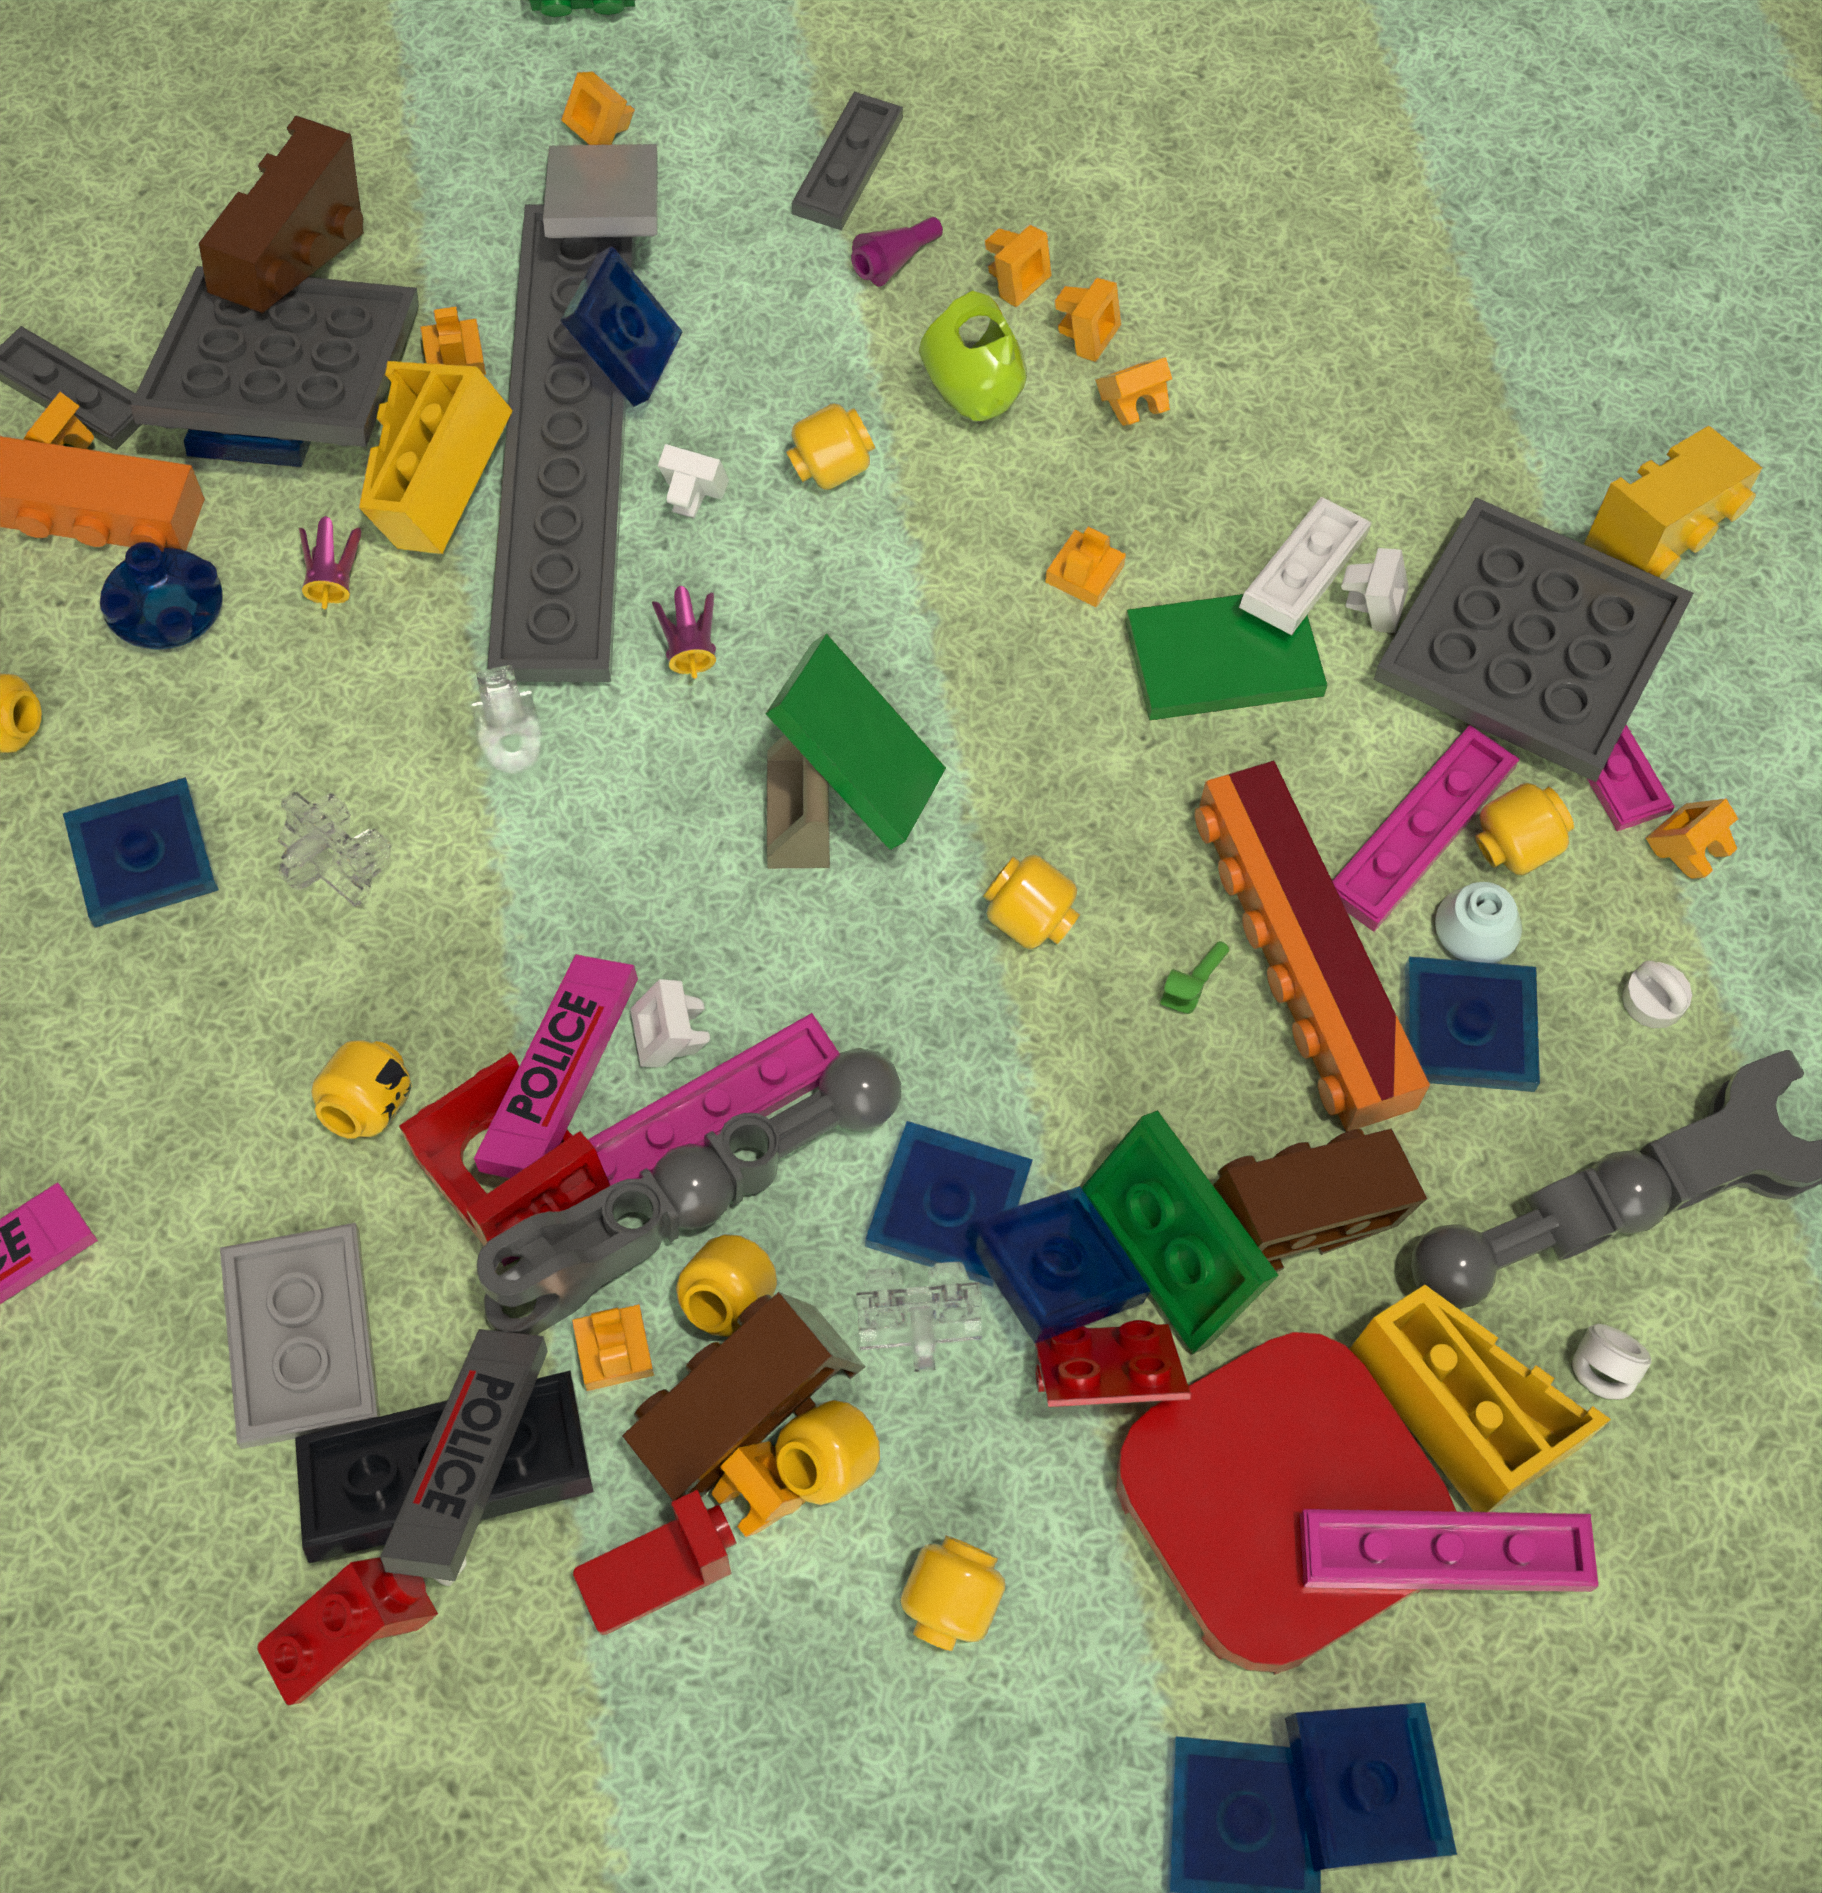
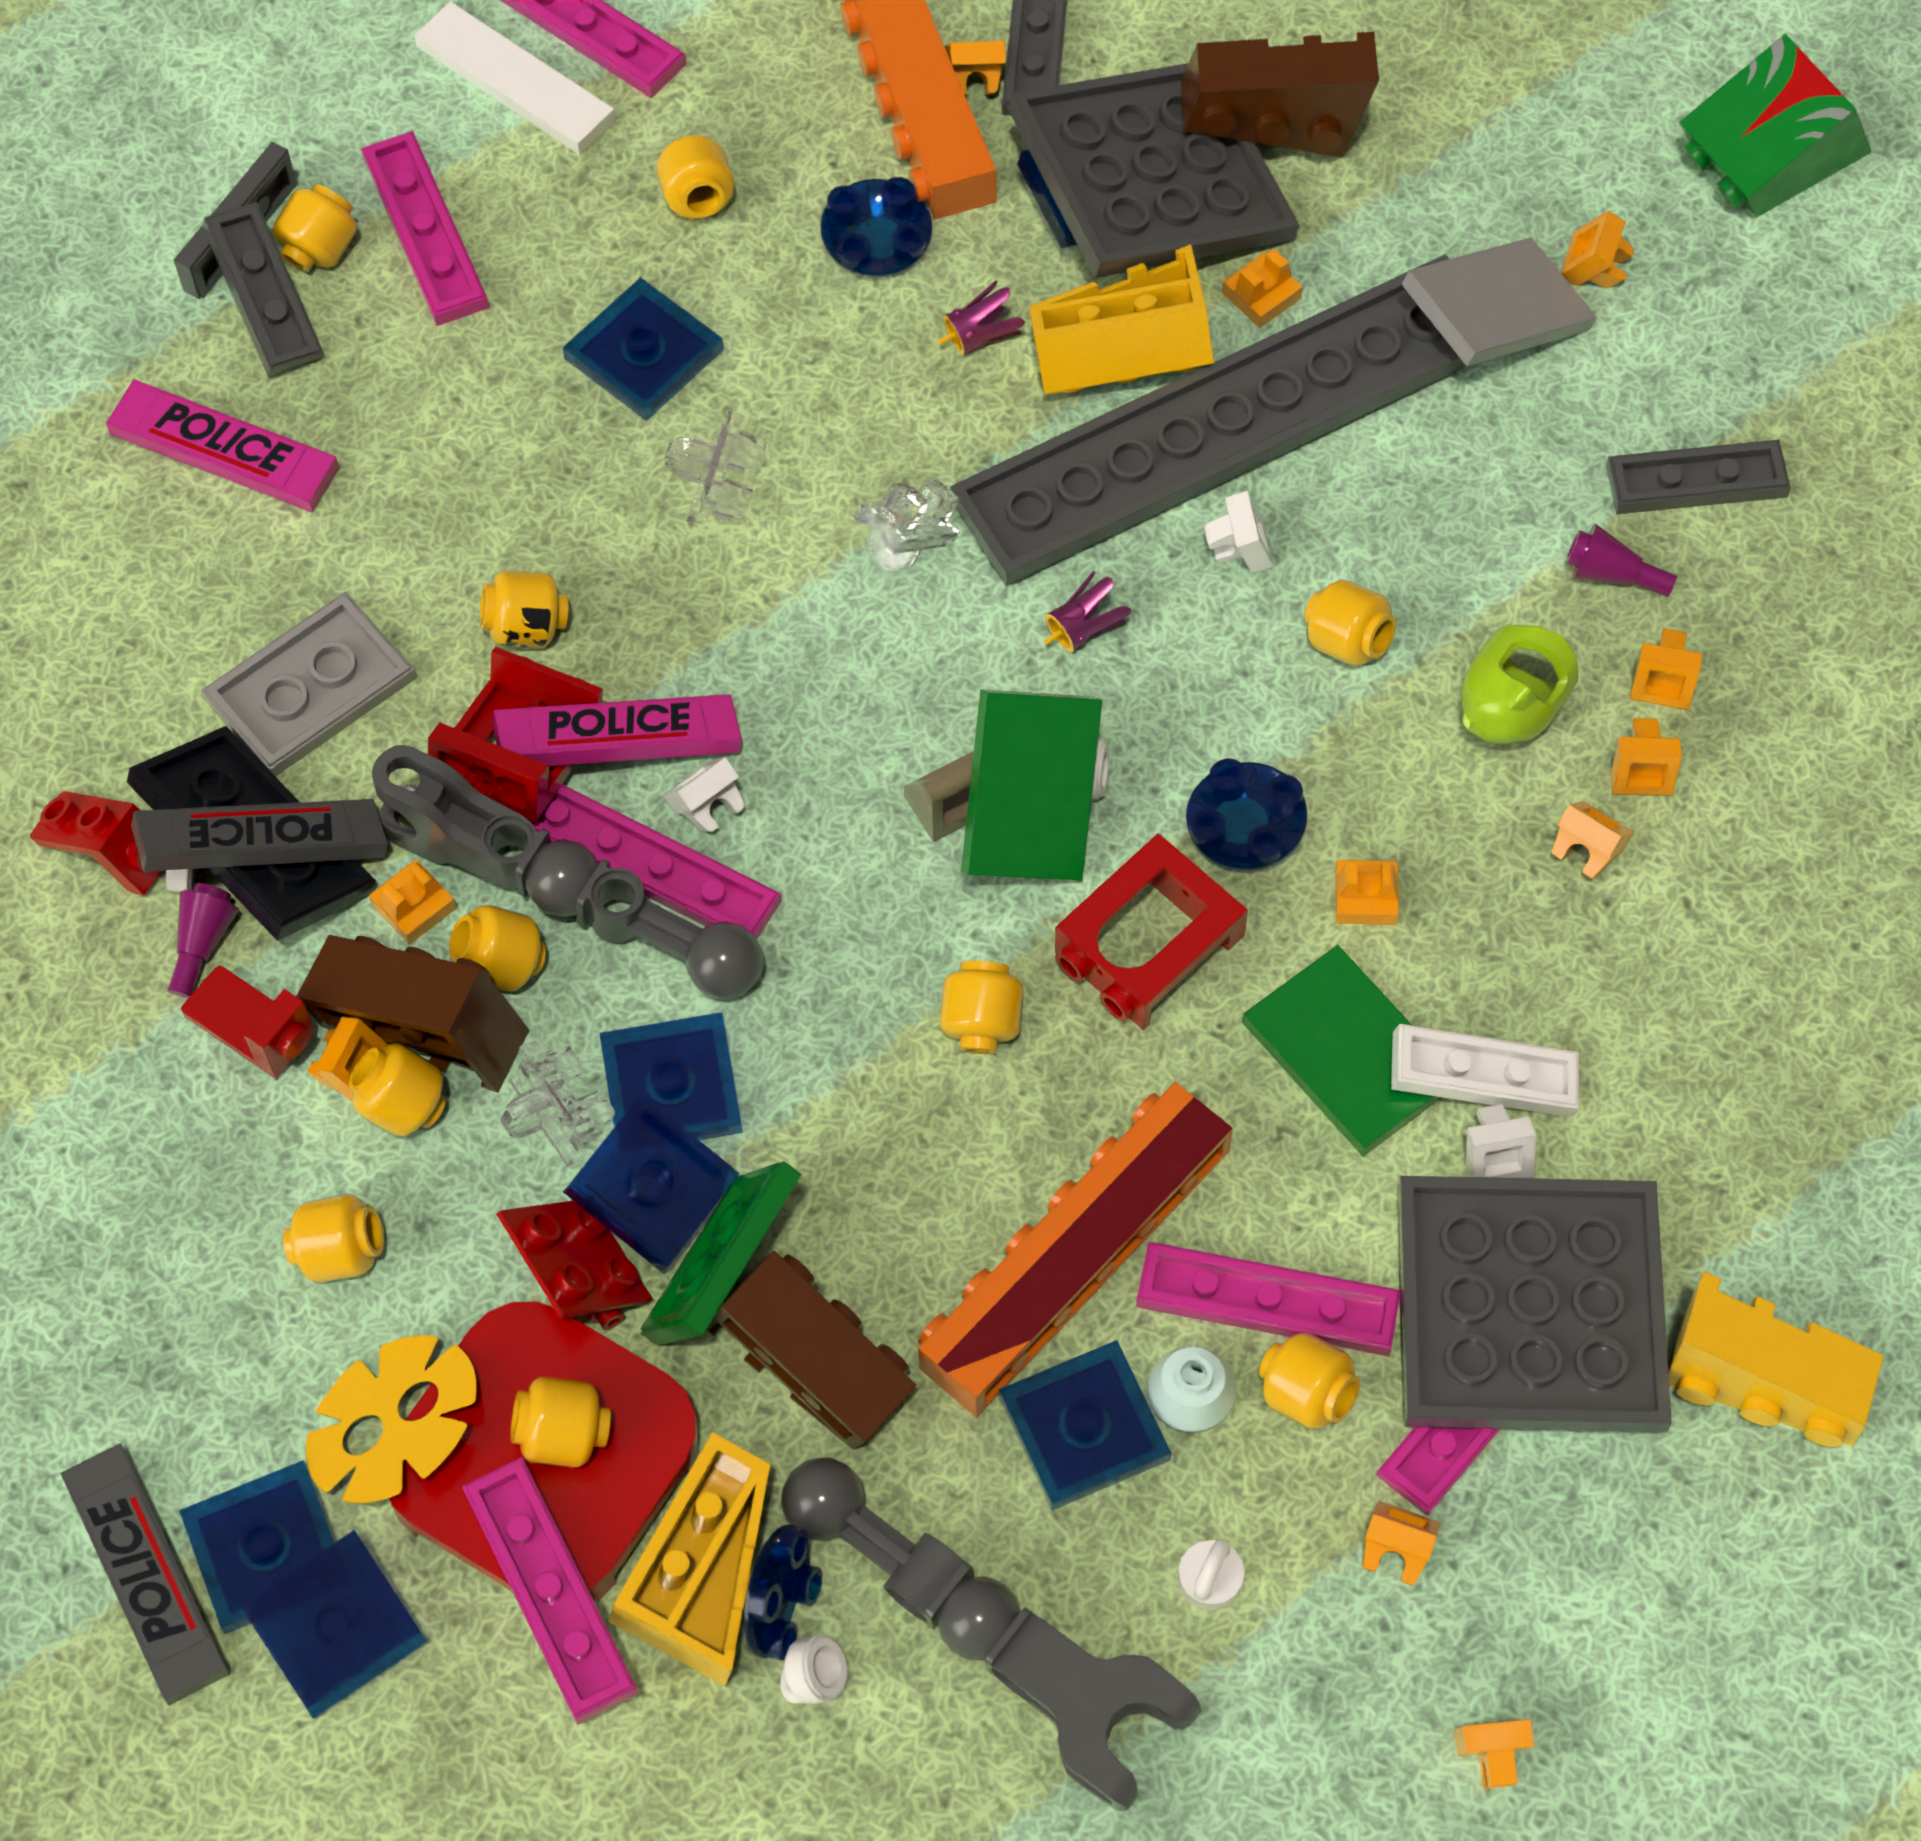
camera: 65 degrees right, 0 degrees up
(515, 1567) = (201, 924): none -> magenta cone
(622, 326) = (1349, 393): clear blue plate -> none
(961, 614) = (1246, 815): none -> clear blue dish
(1024, 684) = (1136, 990): none -> red panel
(1184, 990) = (975, 1175): bright green hand -> none
(1238, 1596) = (421, 1442): none -> yellow piece
(1289, 1455) = (559, 1422): none -> yellow head
(1526, 1344) = (774, 1587): none -> clear blue dish

